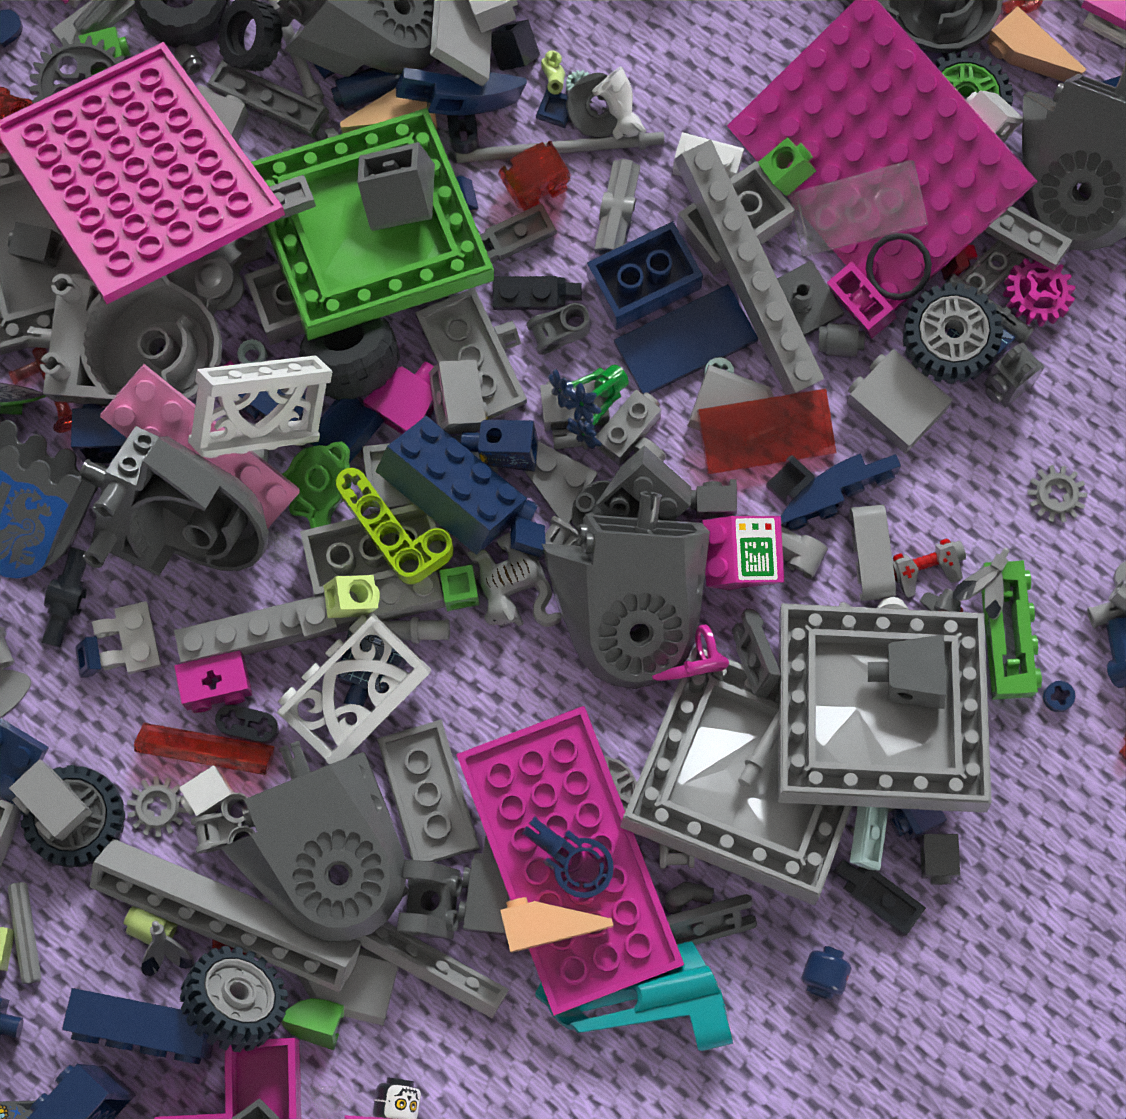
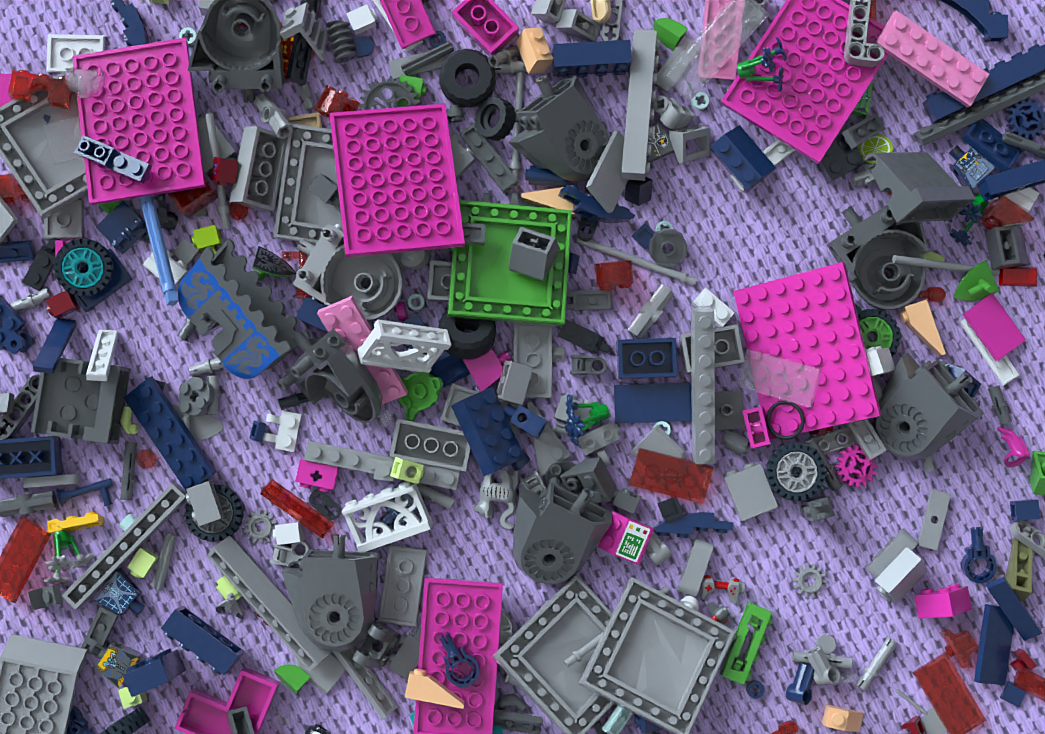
camera: 20 degrees right, 10 degrees up
(64, 598) = (259, 392): black pin -> none
(124, 585) = (292, 400): none -> black axle
(233, 999) = (241, 654): wheel -> none
(386, 523) = (444, 437): lime beam -> none
(459, 587) = (467, 486): bright green brick -> none
(527, 536) = (516, 476): dark blue tile -> none
(553, 71) = (653, 215): yellowish green arm -> none
(619, 97) = (680, 250): white animal -> none
(714, 663) = (579, 590): dark pink piece -> none
(756, 653) = (606, 595): dark grey hinge -> none
(778, 159) = (745, 333): bright green brick -> none
(913, 672) = (682, 648): dark grey torso -> none
(991, 580) = (749, 616): light grey piece -> none

